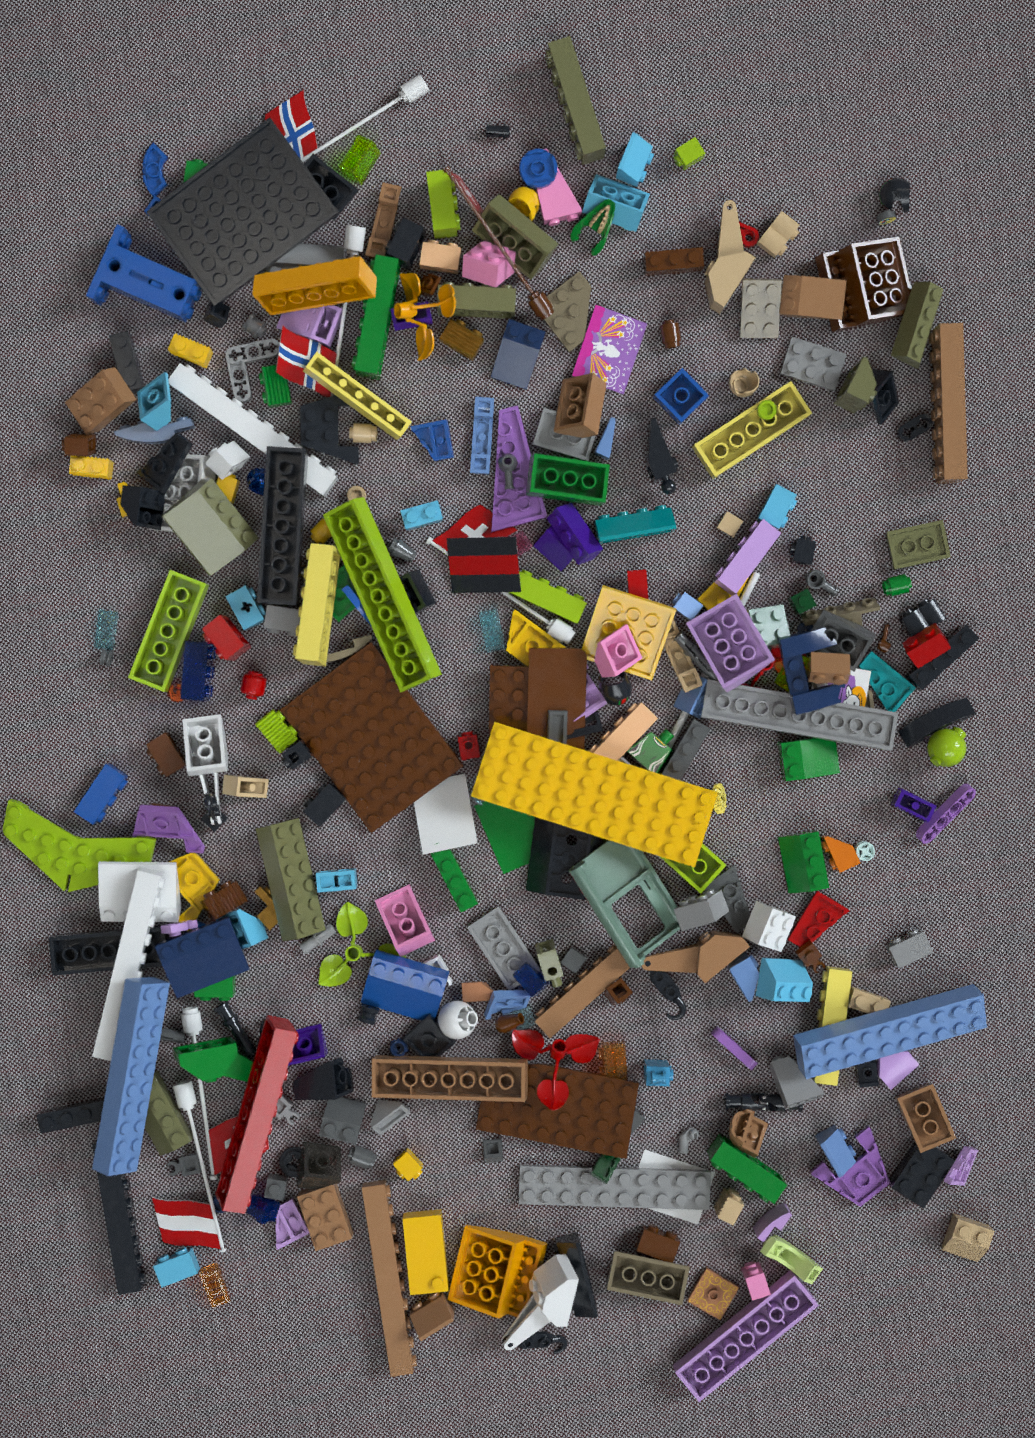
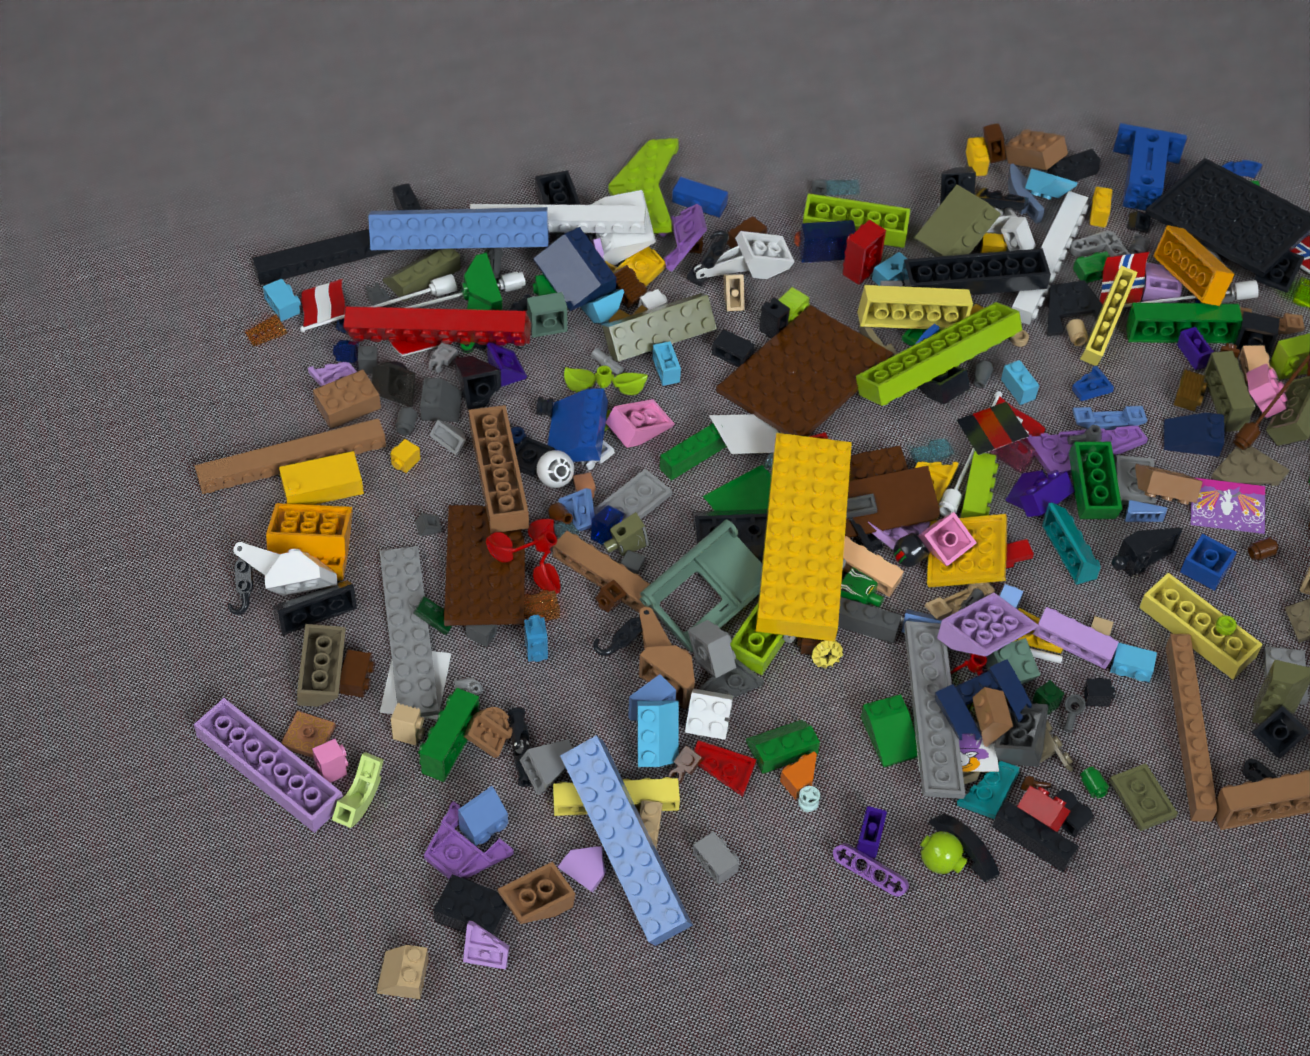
camera: 75 degrees right, 35 degrees down
(249, 876) = (653, 299): none -> white brick
(250, 993) = (547, 314): none -> sand green brick
(253, 684) = (826, 284): red head -> none
(408, 310) = (1200, 332): light orange plant -> none
(431, 1314) = (258, 492): medium nougat slope -> none
(734, 1048) = (573, 711): medium lavender beam -> none
(743, 382) = (1243, 614): tan hair -> none
(775, 1217) = (397, 766): lavender slope -> none
(856, 476) = (1191, 728): none -> medium nougat brick
(866, 1080) = (571, 838): black brick -> none

